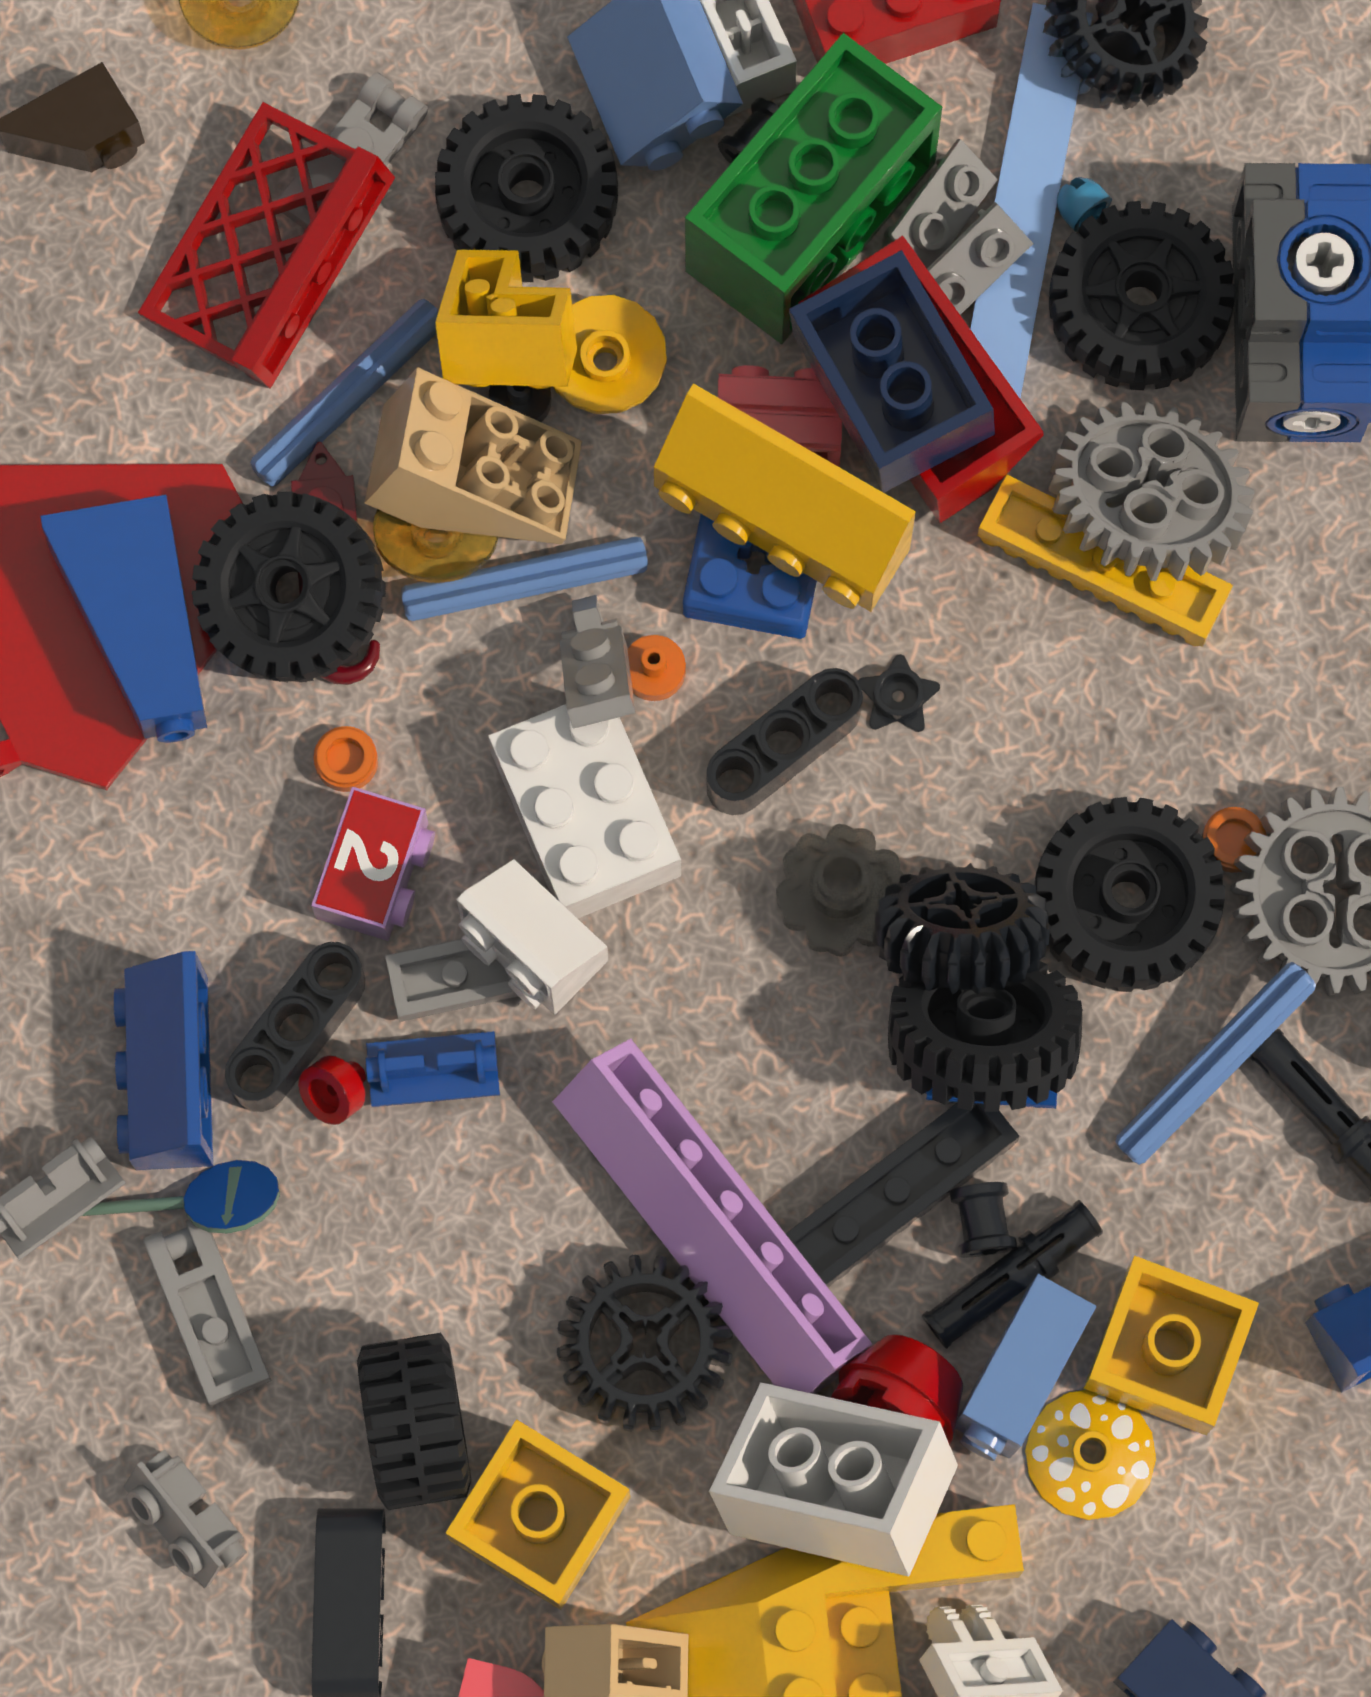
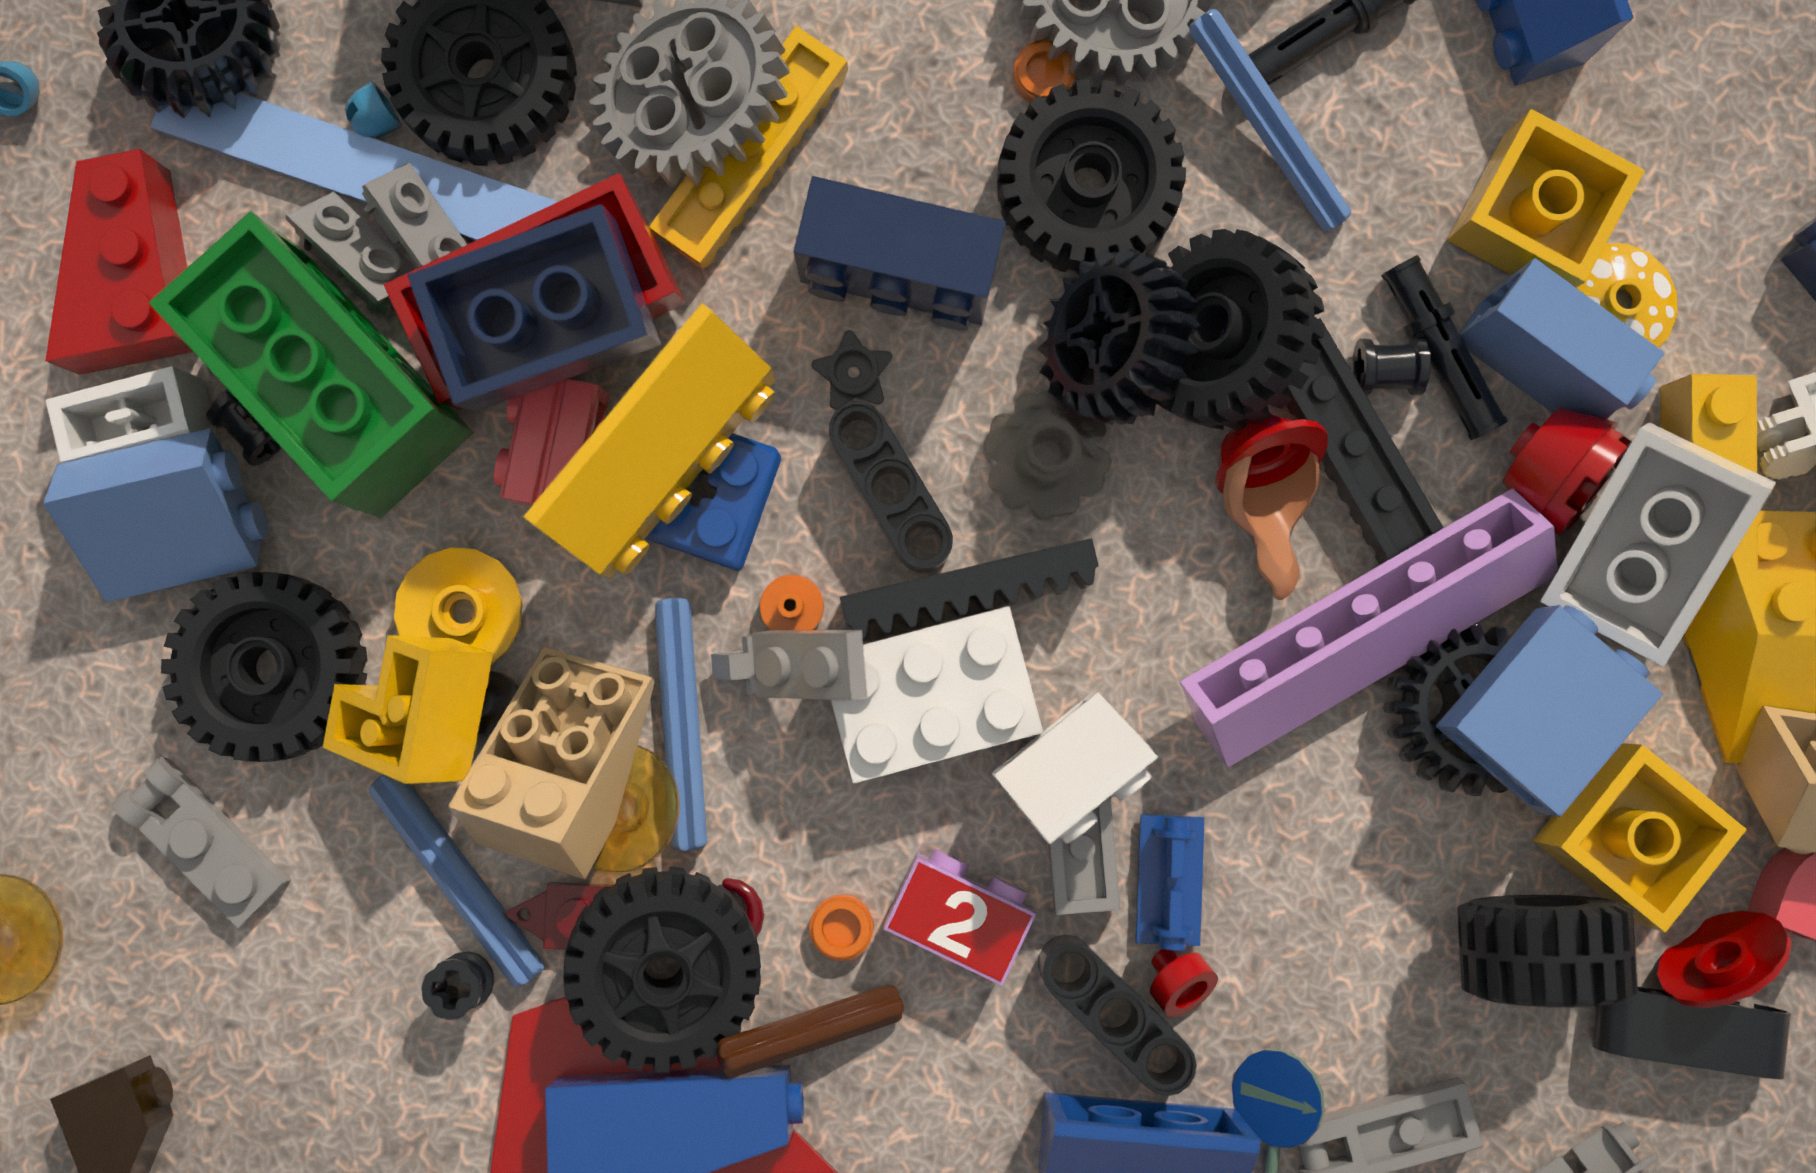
camera: 85 degrees left, 10 degrees up
(245, 735) = (809, 1030): none -> reddish brown axle
(264, 412) = (444, 998): none -> black bush
(314, 258) = (303, 894): red fence -> none
(420, 1616) = (1725, 959): none -> red dish
(653, 1388) = (1551, 708): none -> medium blue brick
(696, 830) = (971, 582): none -> black gear
(838, 1106) = (1267, 486): none -> piece
(1011, 709) = (897, 253): none -> dark blue brick

